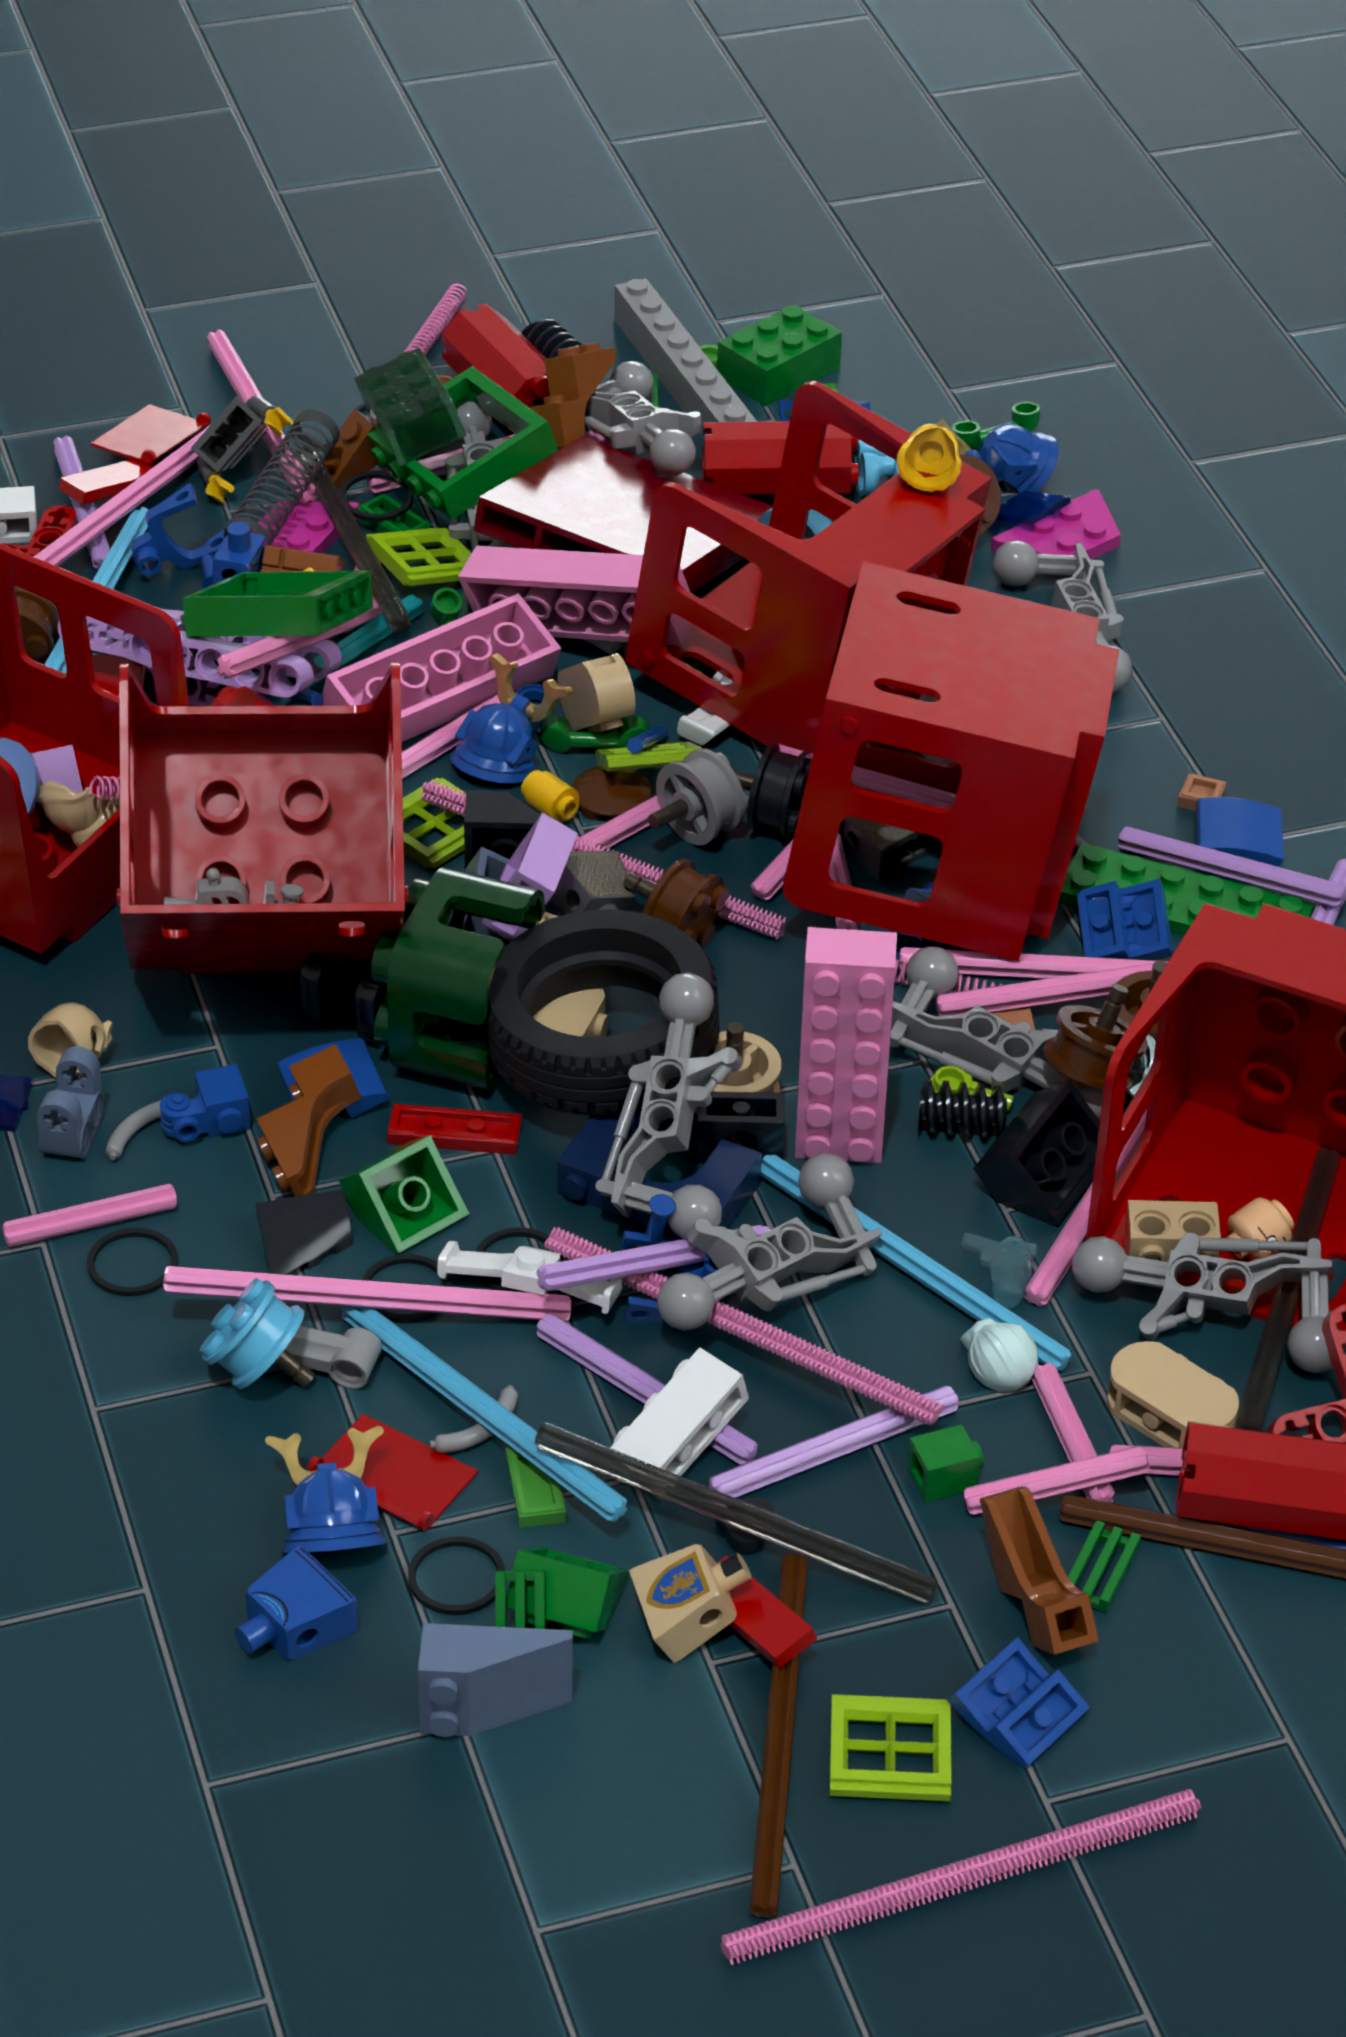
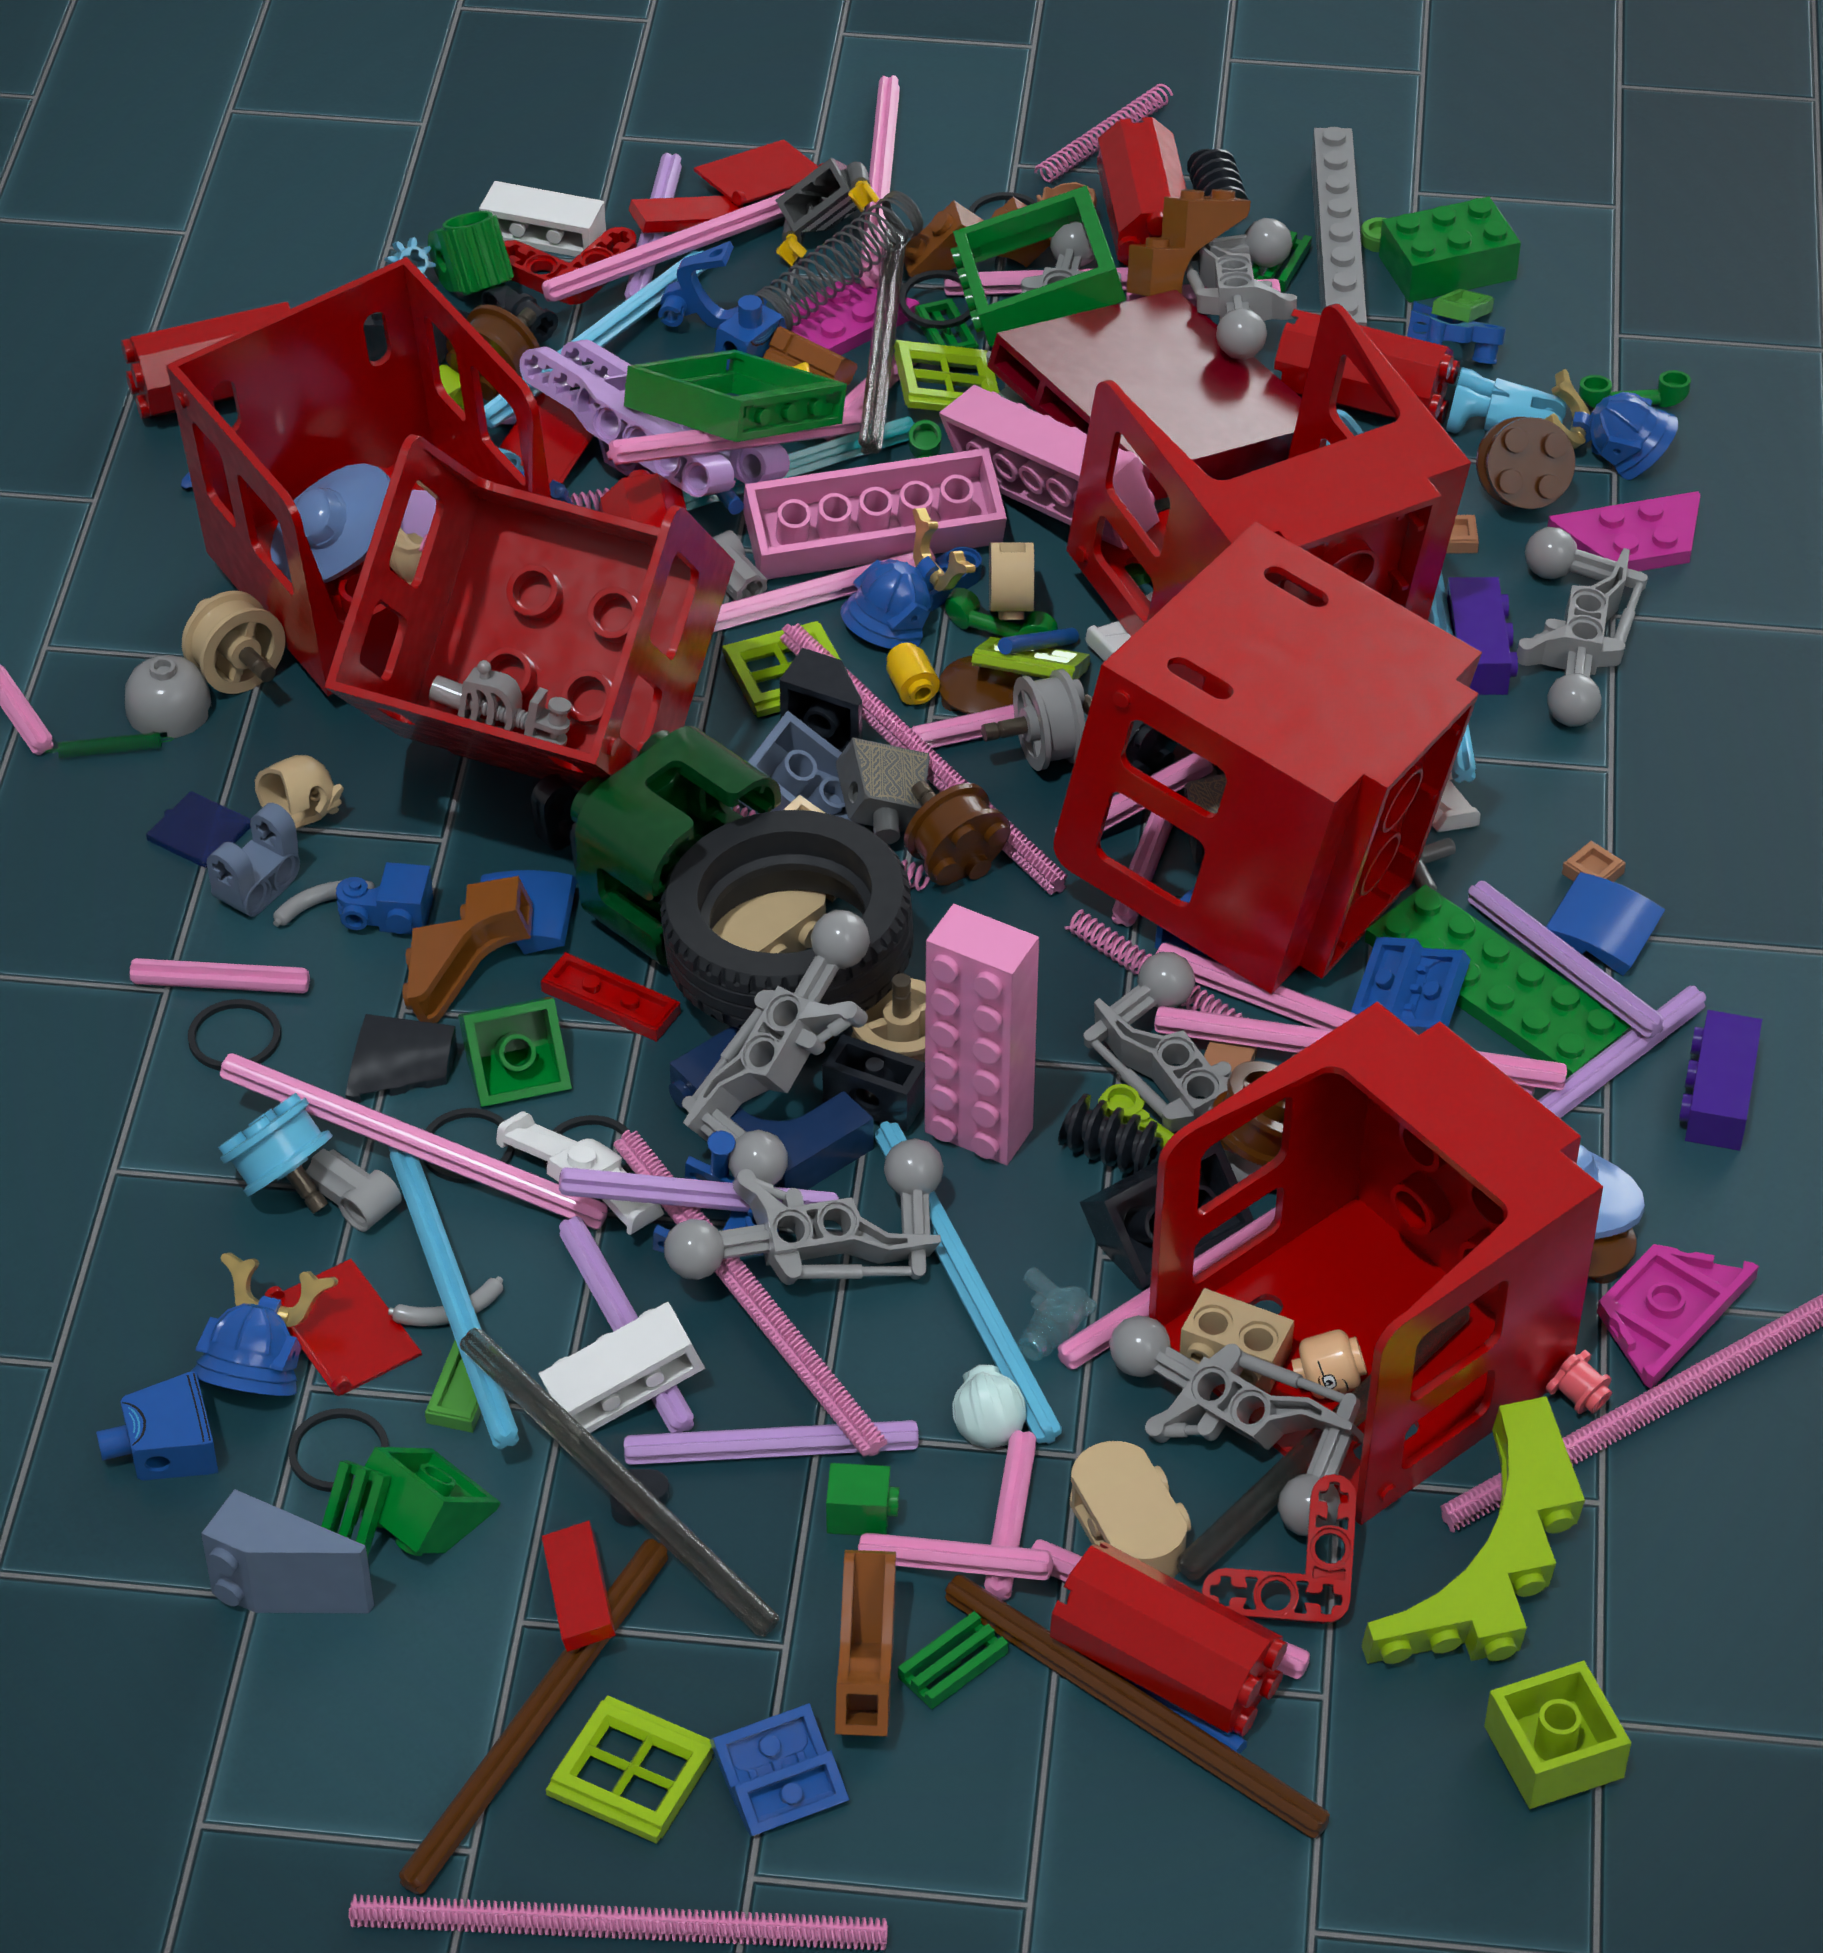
camera: 25 degrees right, 5 degrees up
(410, 406) = (995, 214): clear green brick -> none
(537, 865) = (814, 750): lavender window -> none
(688, 1597) = (518, 1550): tan torso -> none
(932, 452) = (1406, 415): yellow hair -> none
(1030, 507) = (1609, 492): clear blue piece -> none

